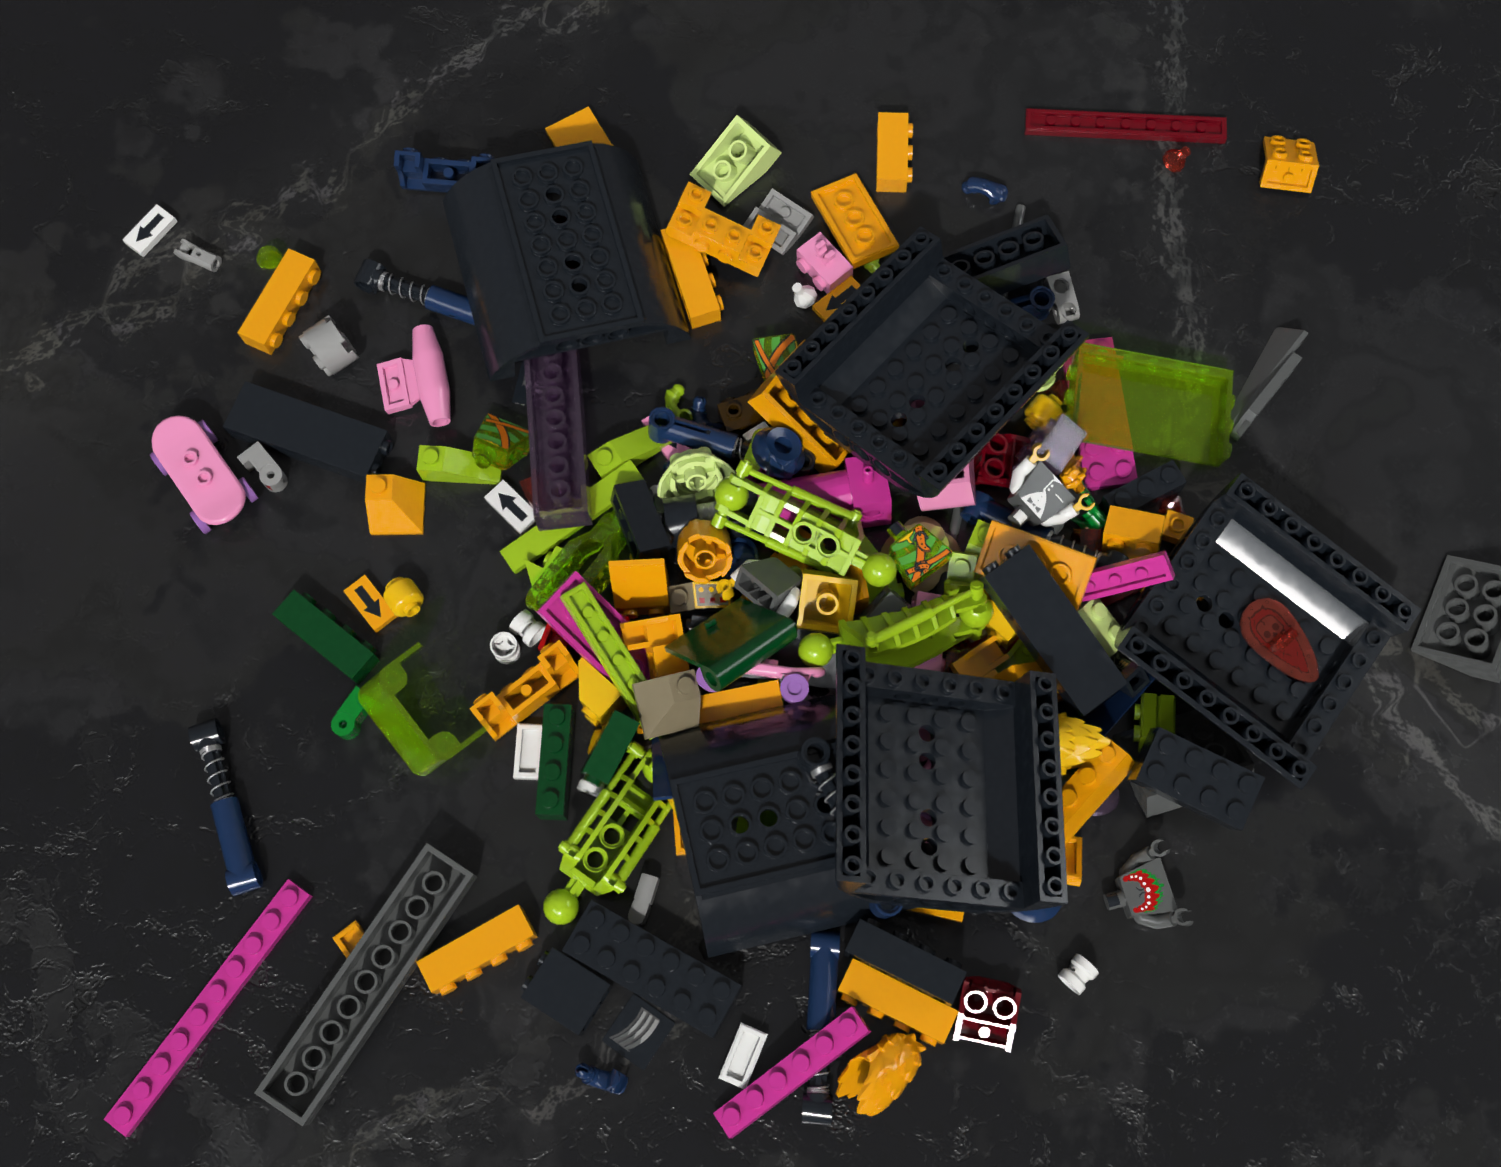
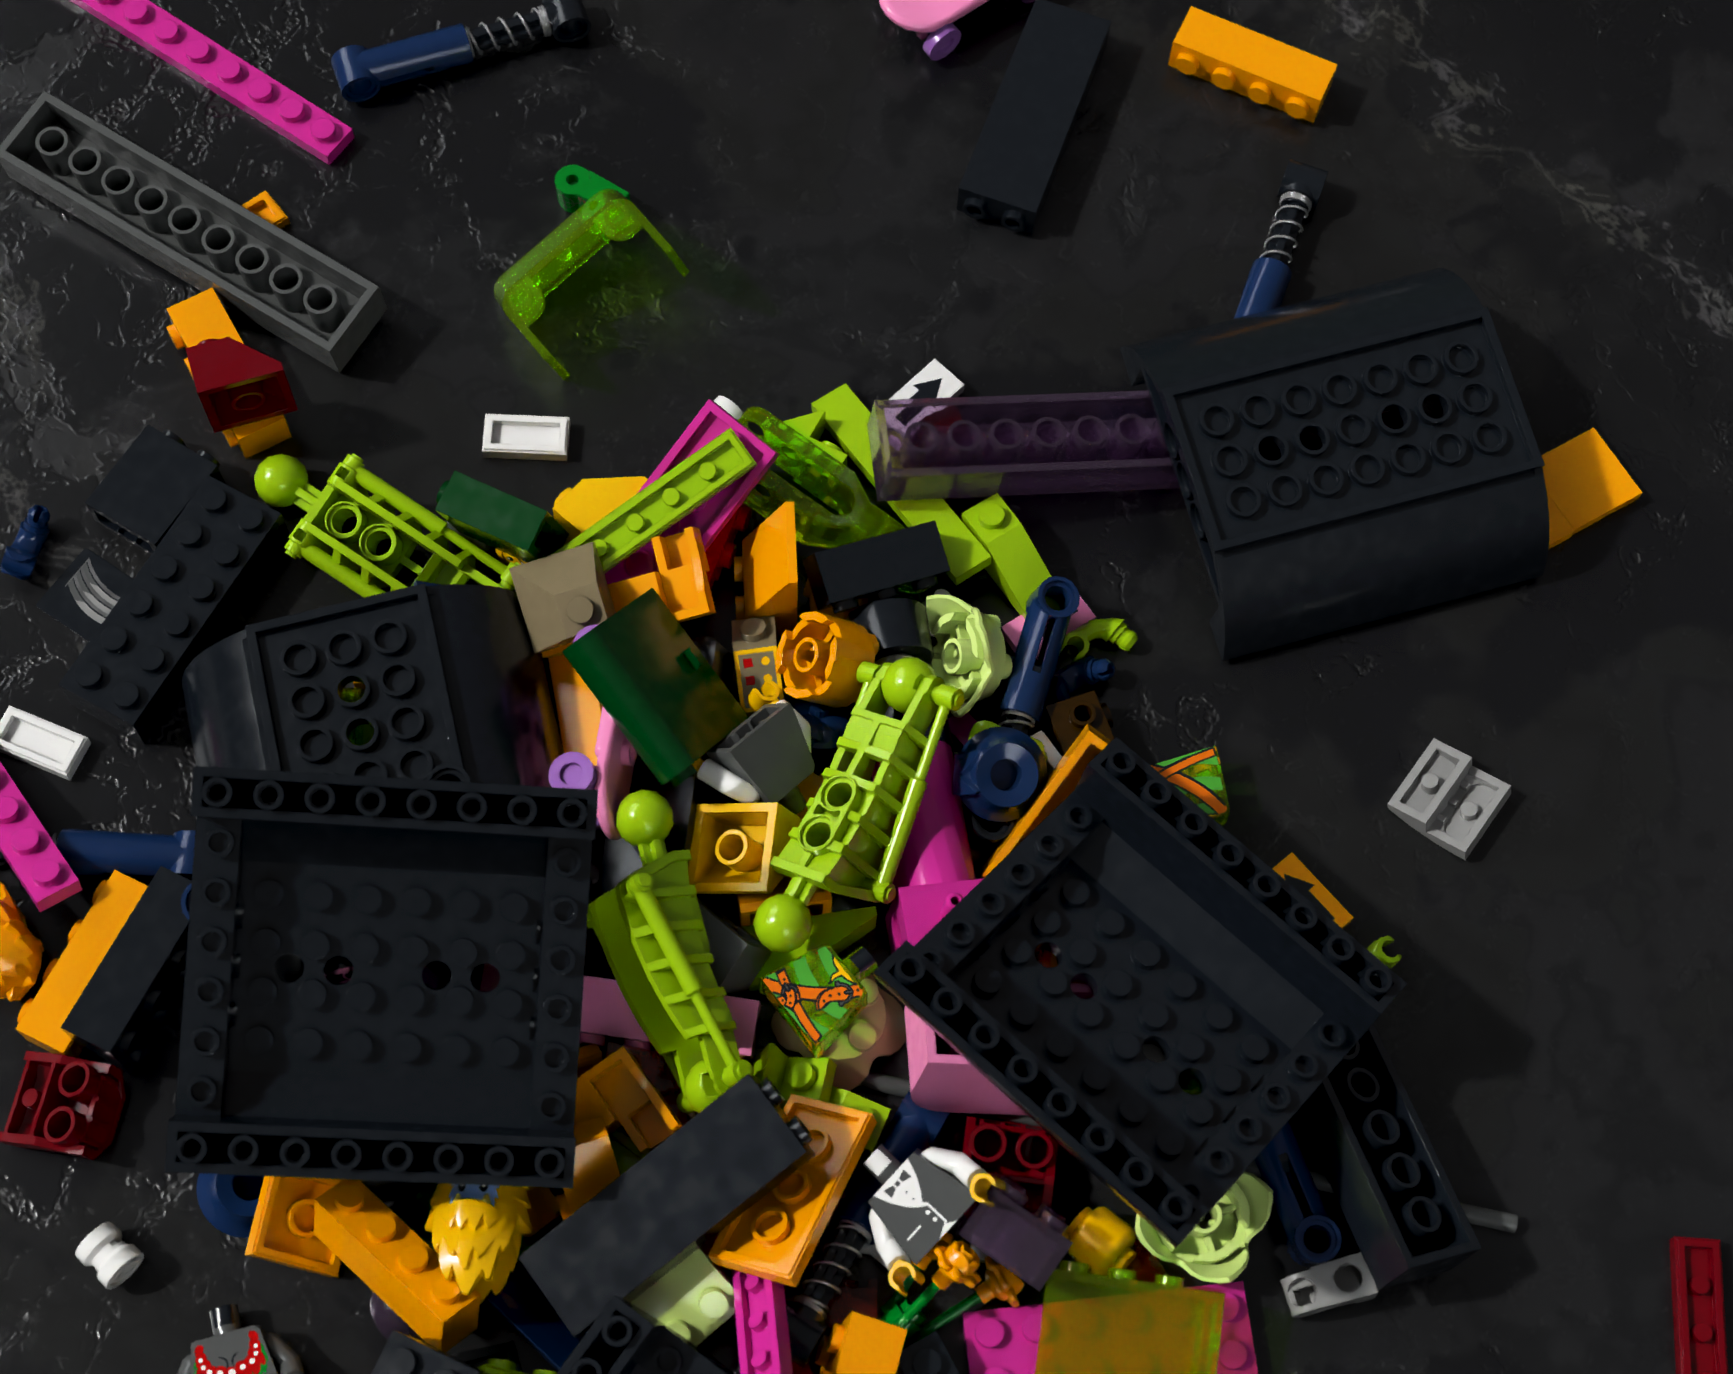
camera: 80 degrees right, 5 degrees down
(268, 257) = (1327, 44): clear neon green plate -> none
(269, 472) = (979, 63): light grey leg -> none
(327, 637) = (710, 156): dark green brick -> none
(329, 345) = (1175, 129): light grey brick -> none
(370, 603) = (764, 213): light orange tile -> none
(395, 505) = (920, 236): light orange slope -> none
(403, 597) = (769, 252): yellow head -> none
(422, 378) = (1129, 258): bright pink plate -> none
(435, 173) = (1485, 257): dark blue bracket -> none
(453, 465) = (985, 320): lime slope -> none
(499, 443) = (1017, 362): clear neon green torso -> none
(501, 644) = (685, 384): white wheel -> none
(501, 929) = (238, 383): none -> dark red slope
(528, 693) = (601, 411): light orange bracket -> none
(555, 762) = (514, 465): dark green brick -> none
(643, 899) = (282, 596): light grey bar -> none
(693, 282) = (1336, 656): light orange brick -> none
(721, 236) = (1400, 689): light orange bracket -> none
(735, 161) = (1560, 727): yellowish green slope -> none
(804, 295) = (1311, 839): white rock -> none
(823, 263) = (1371, 869): bright pink brick -> none
(854, 220) = (1458, 922): light orange tile -> none
(893, 152) = (1602, 992): light orange brick -> none
(994, 191) = (1539, 1167): dark blue piece -> none

